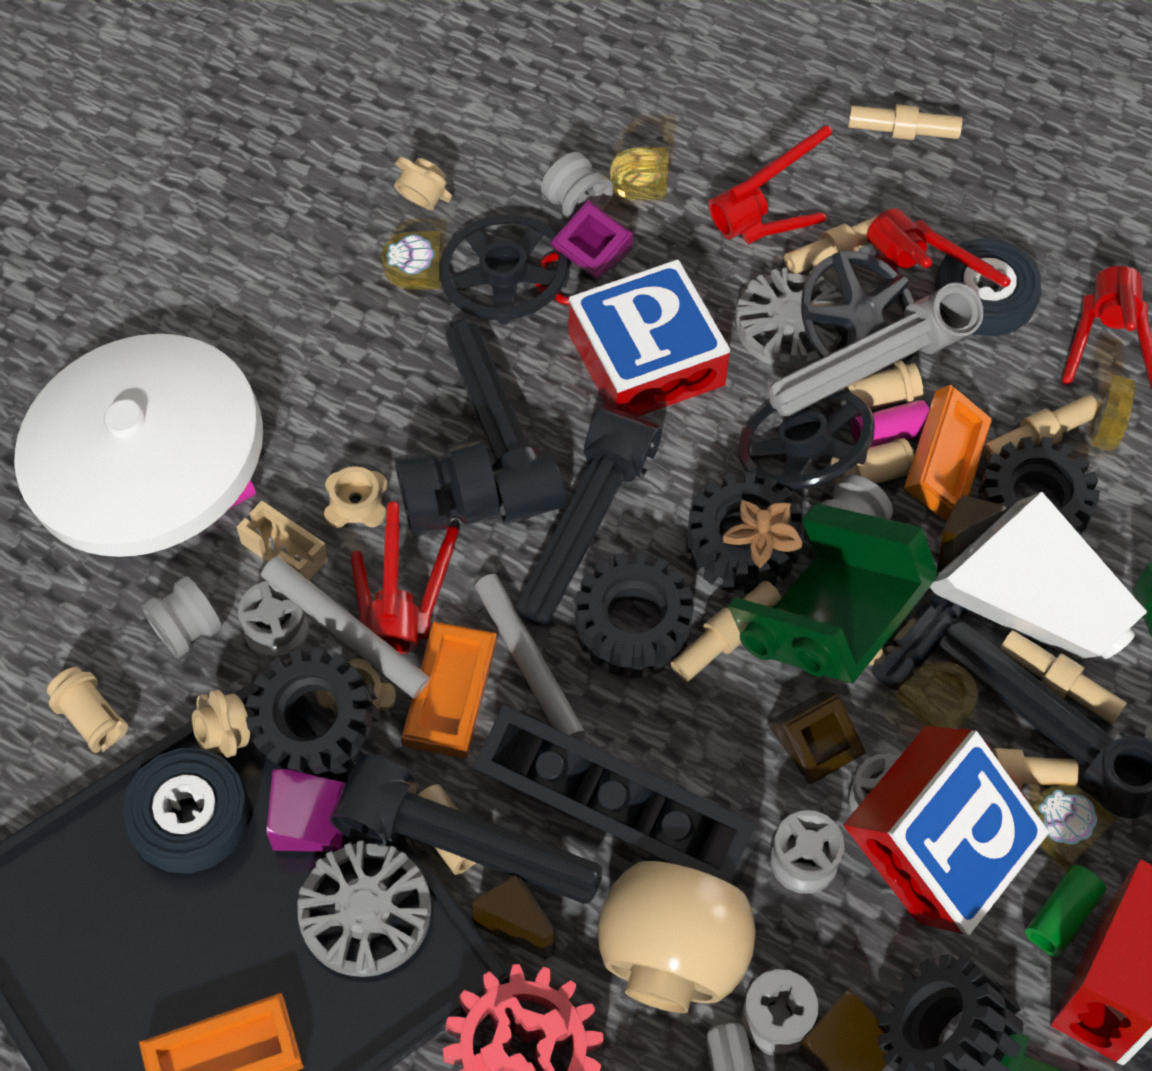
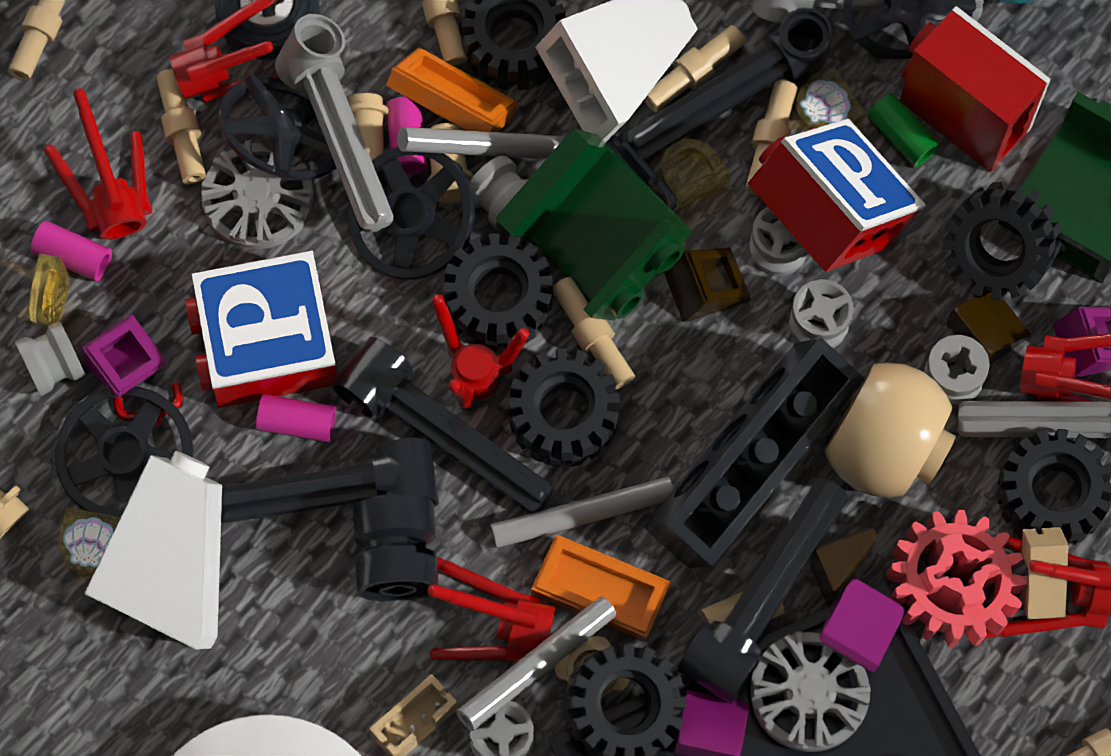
camera: 80 degrees left, 10 degrees up
(353, 482) = (365, 627): tan plate -> none
(401, 304) = (167, 552): none -> white slope
(439, 941) = (861, 624): none -> magenta slope
(568, 390) = (296, 418): none -> dark pink piece
(654, 524) = (474, 366): none -> red plant
(689, 187) = (76, 251): none -> dark pink piece
(764, 531) = (518, 269): medium nougat plant -> none
(890, 461) = (476, 143): none -> light grey bar
(966, 523) = (545, 101): dark brown slope -> none

